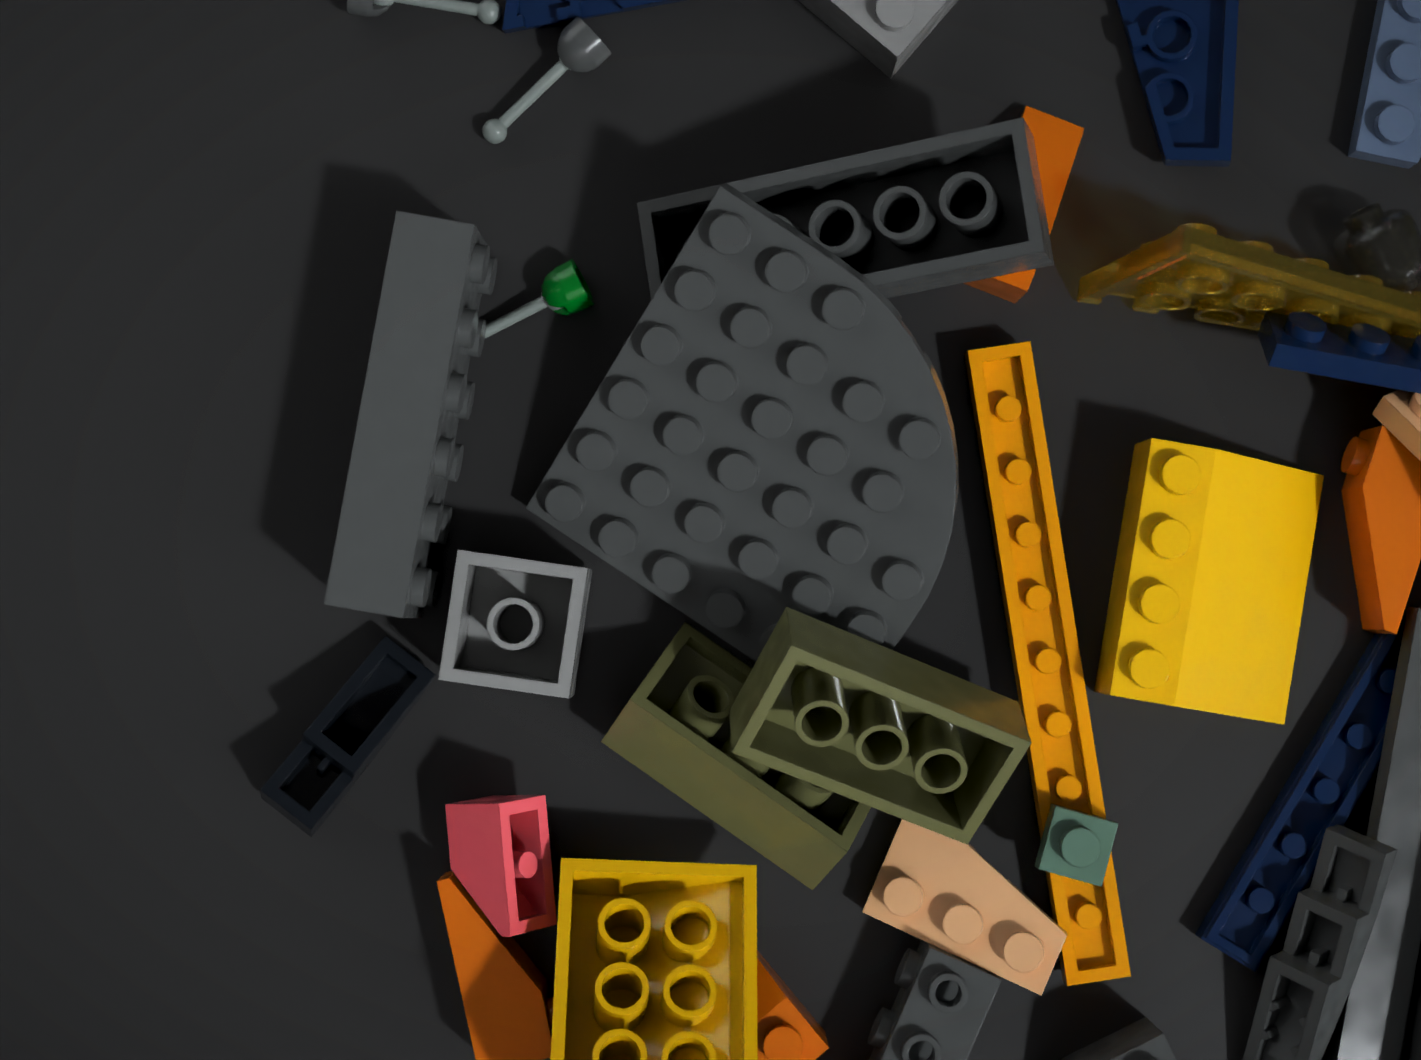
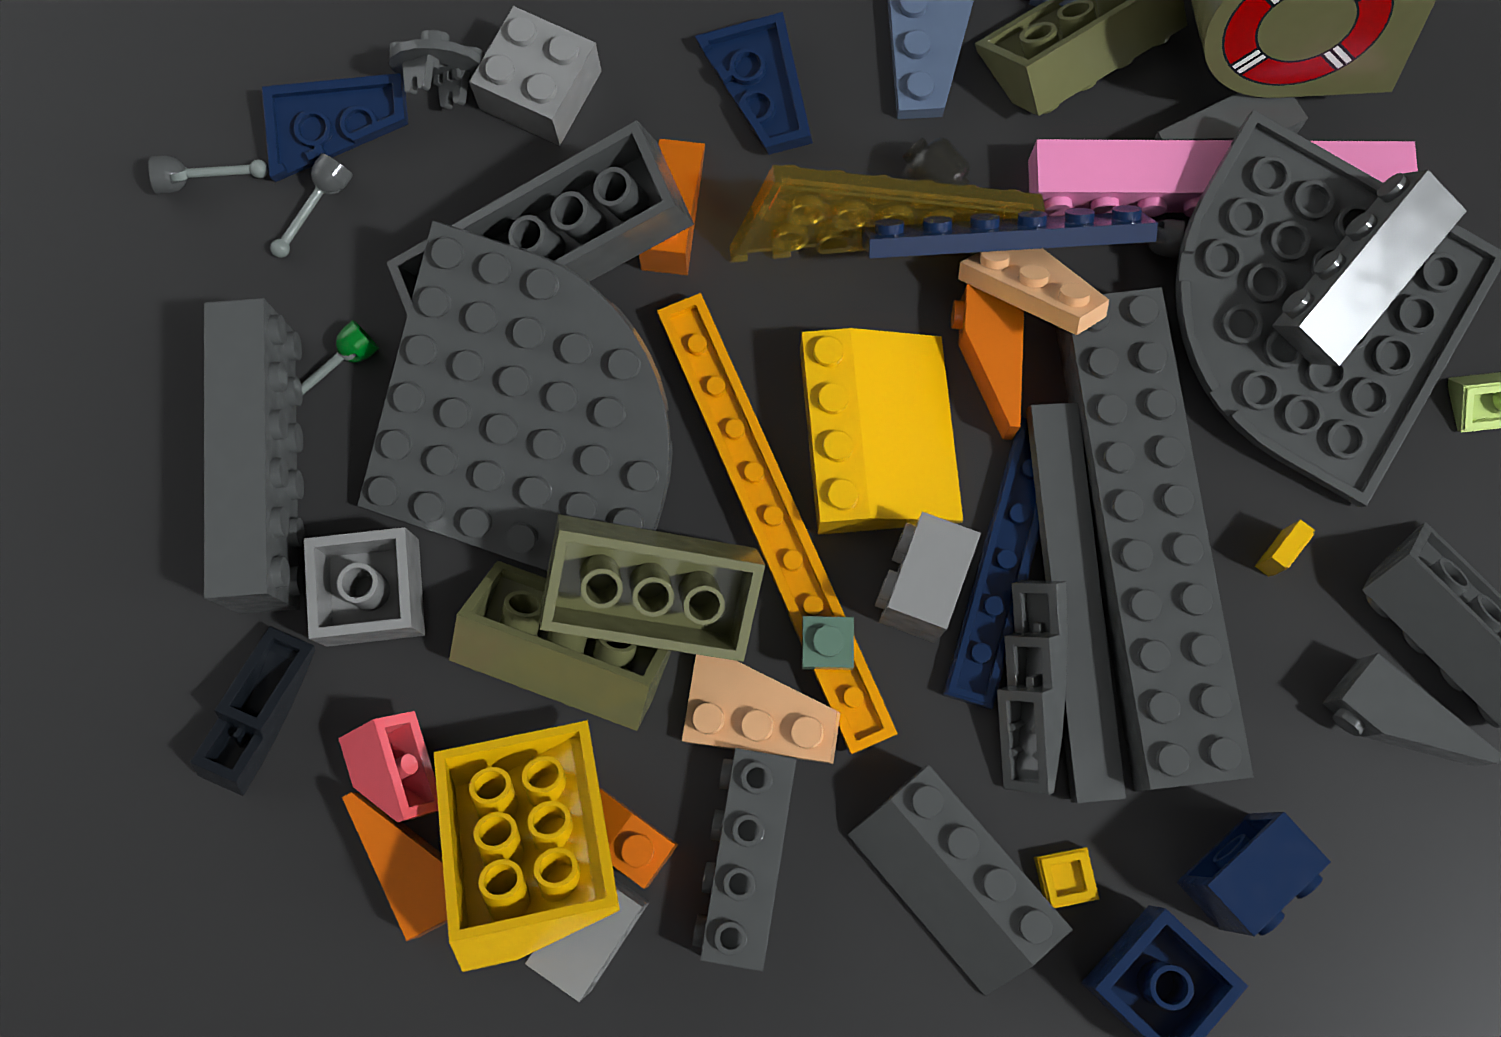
camera: 15 degrees left, 10 degrees down
(1225, 798) = (929, 577): none -> light grey brick

